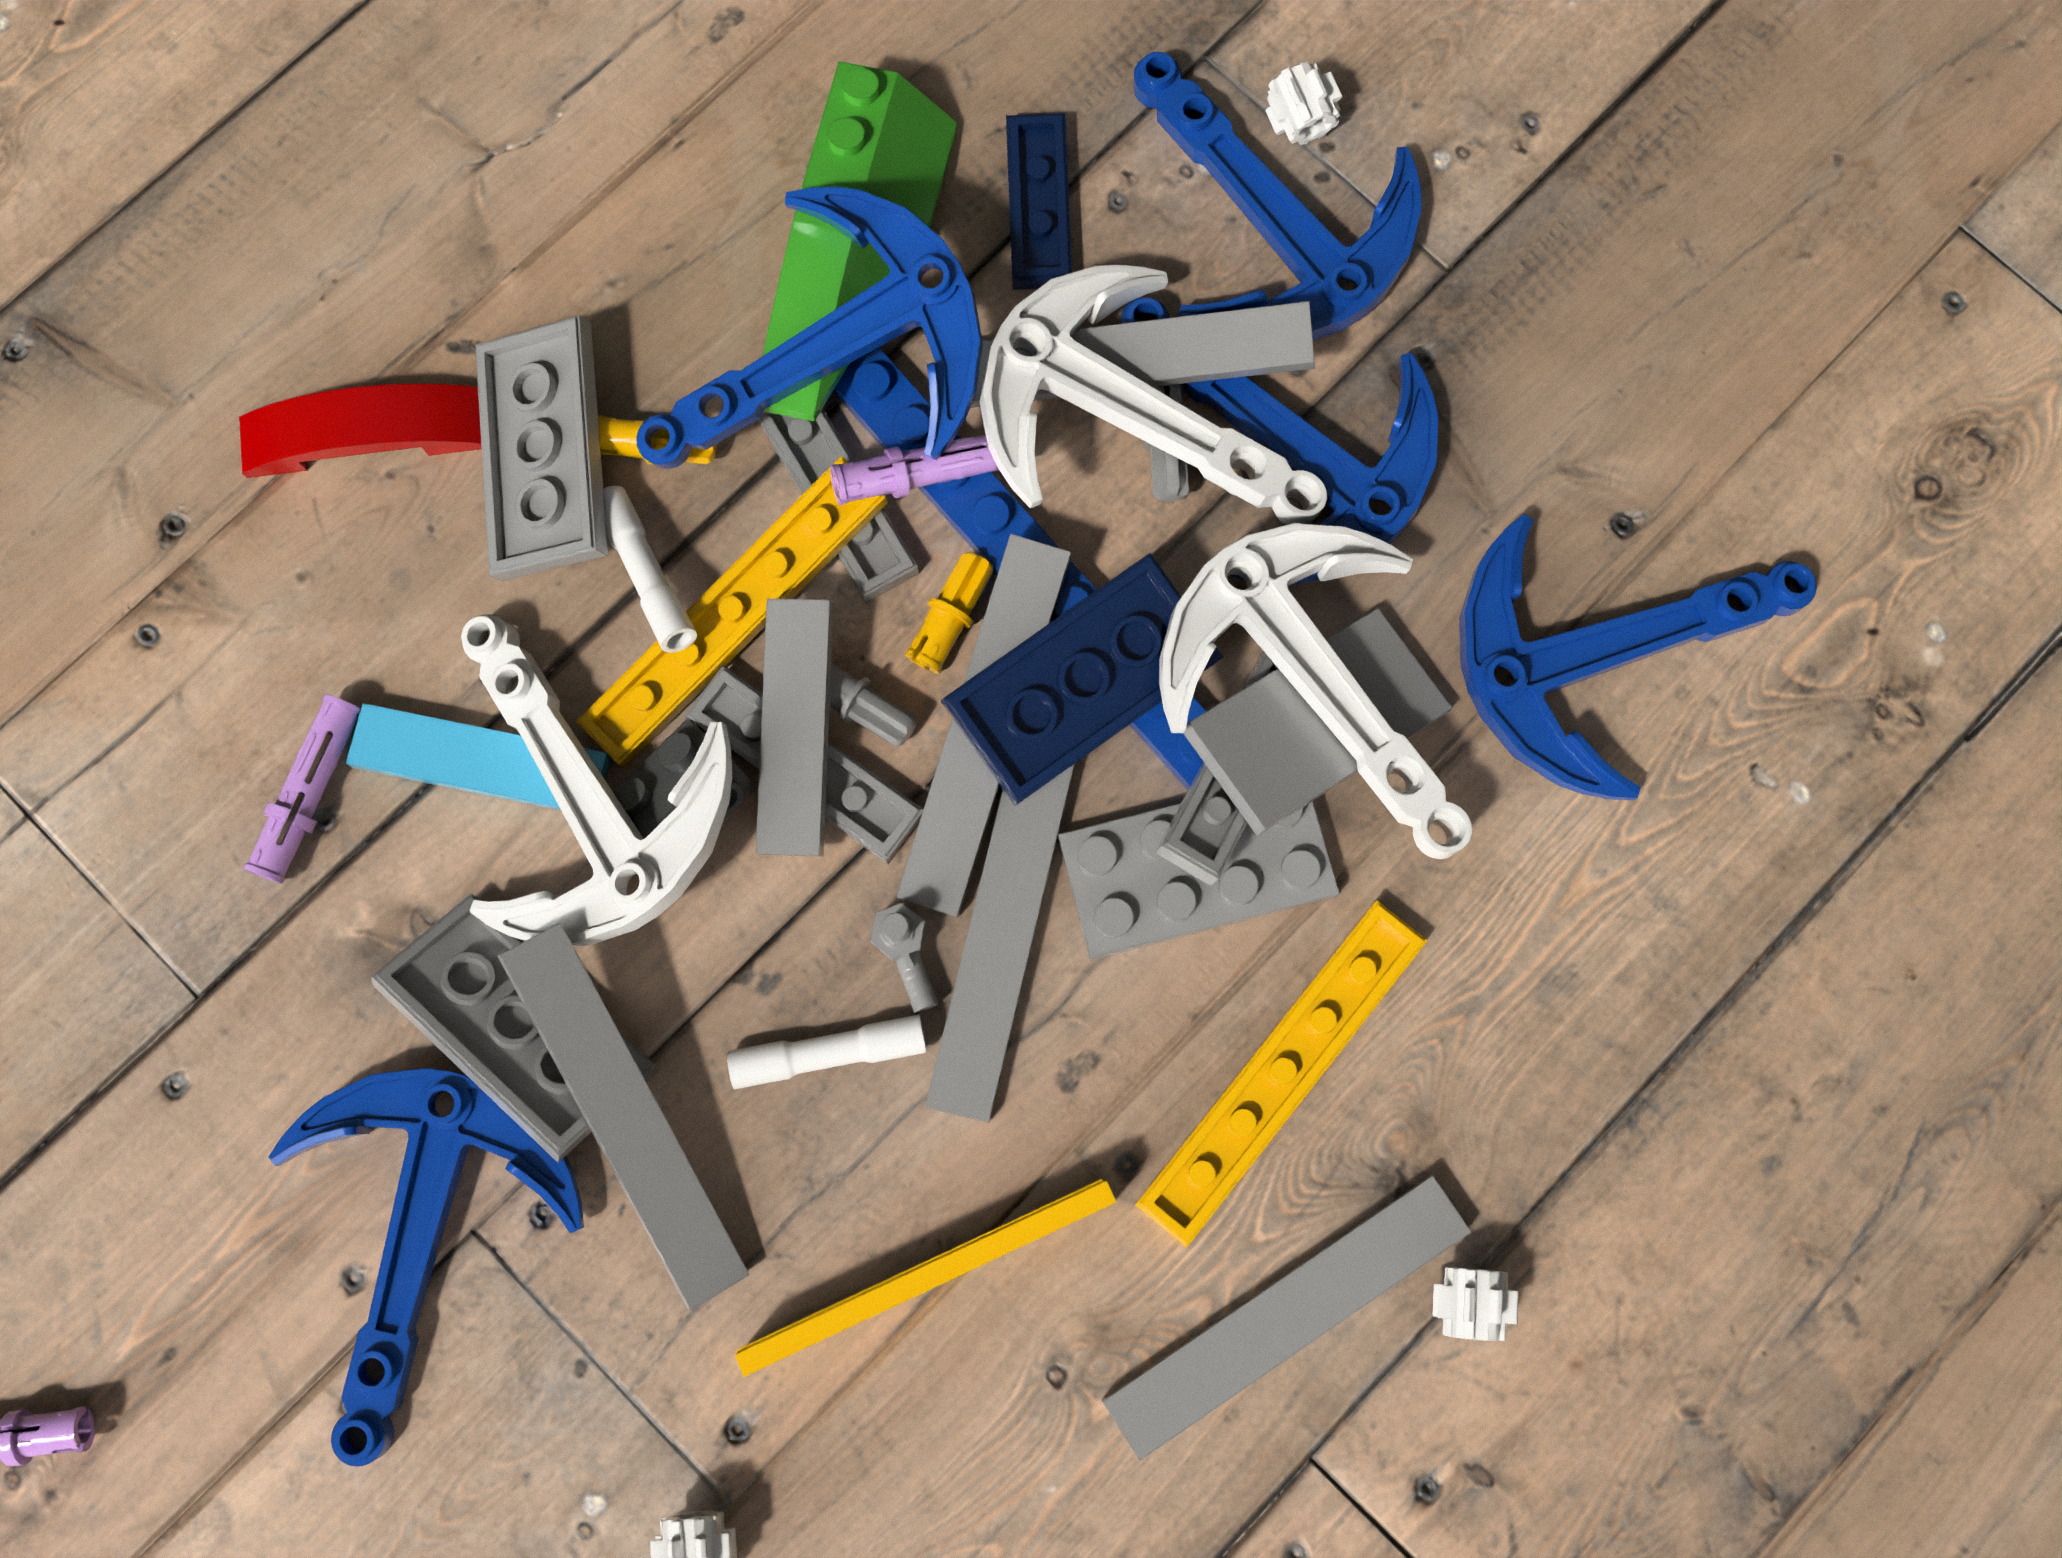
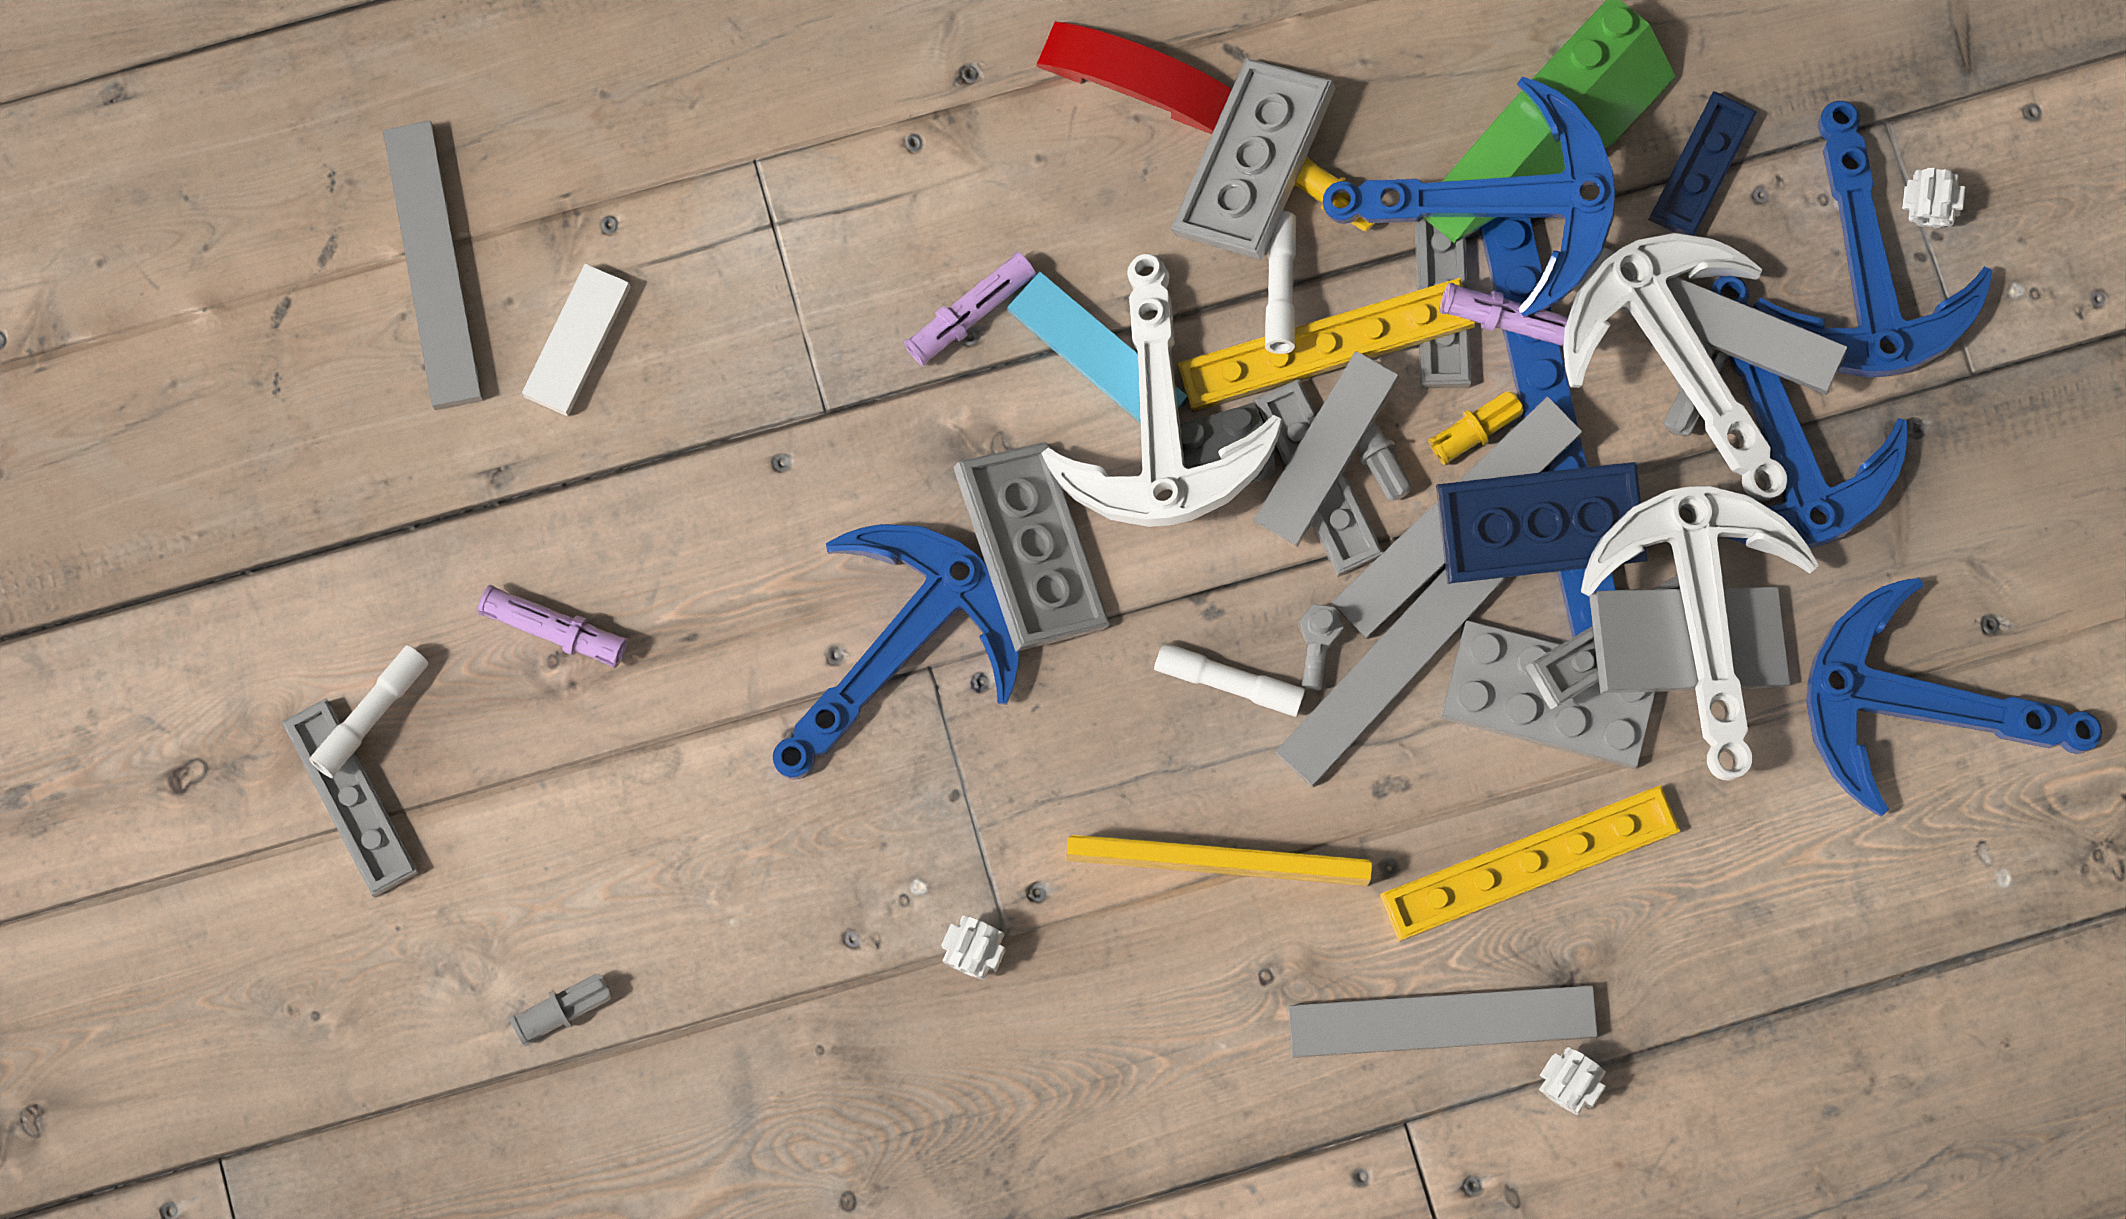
camera: 30 degrees right, 0 degrees up
(623, 1116) = (1076, 644): light grey tile -> none

